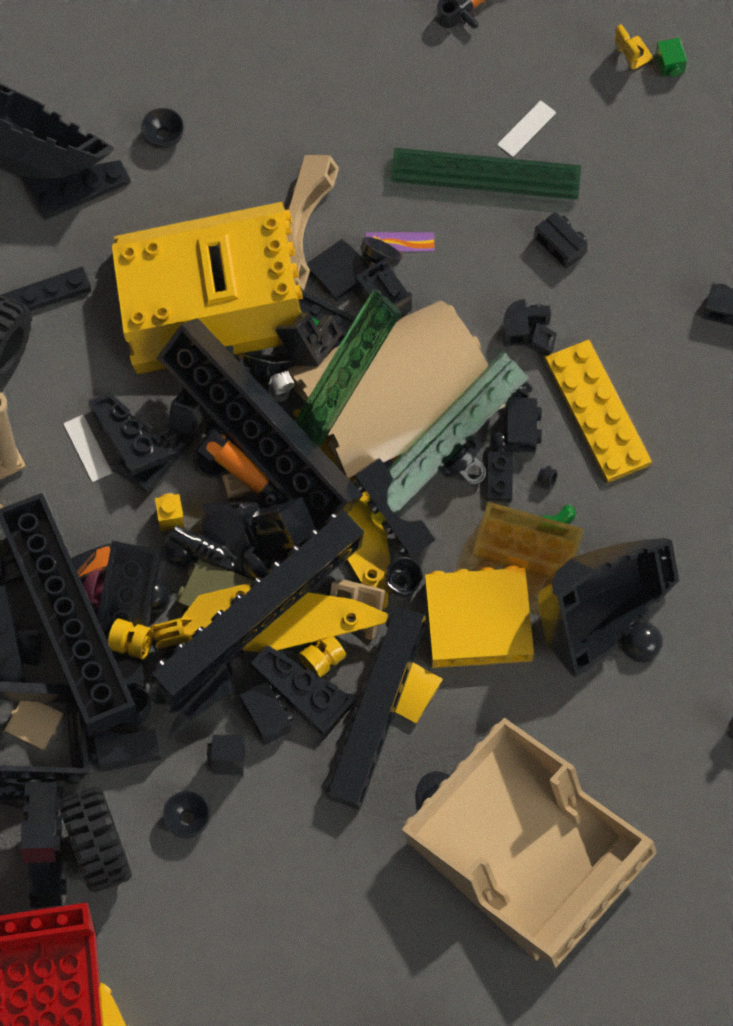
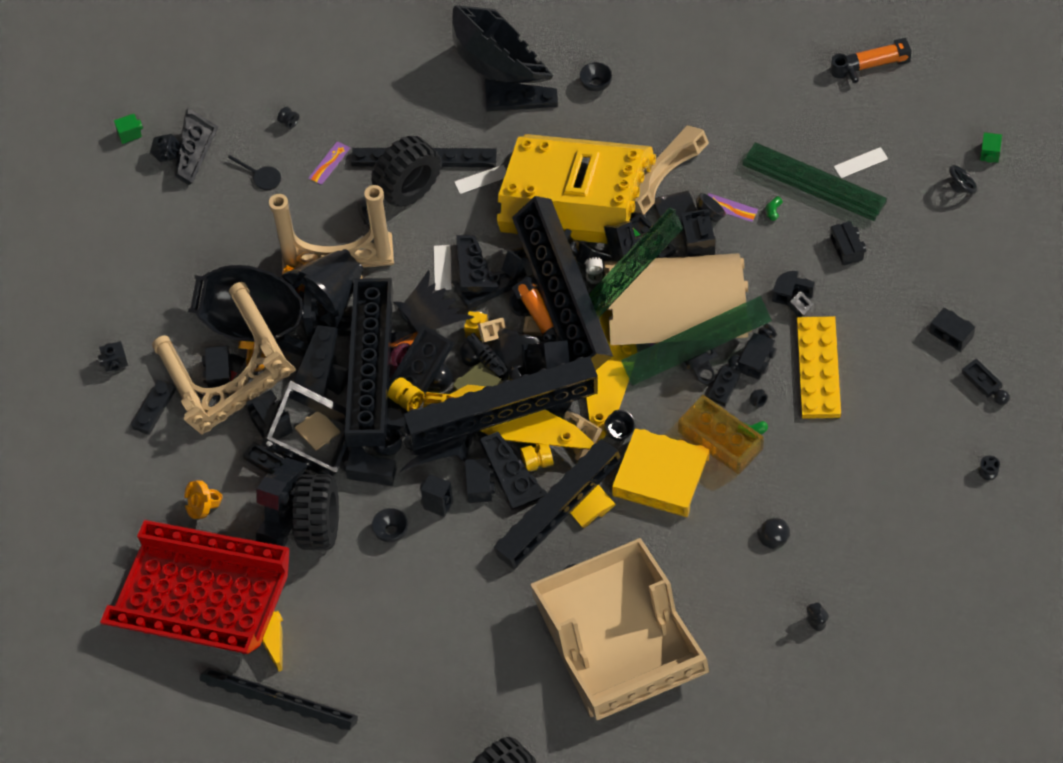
camera: 30 degrees right, 10 degrees down
(81, 312) = (481, 179): none -> white sticker
(96, 514) = (427, 307): none -> black piece
(191, 512) = (490, 329): none -> tan slope
(410, 535) = (639, 399): black arch -> none
(451, 227) = (770, 208): none -> green arm
(601, 597) = (752, 484): black windscreen -> none
(630, 48) = (960, 130): yellow piece -> none
(657, 112) = (961, 180): none -> black piece

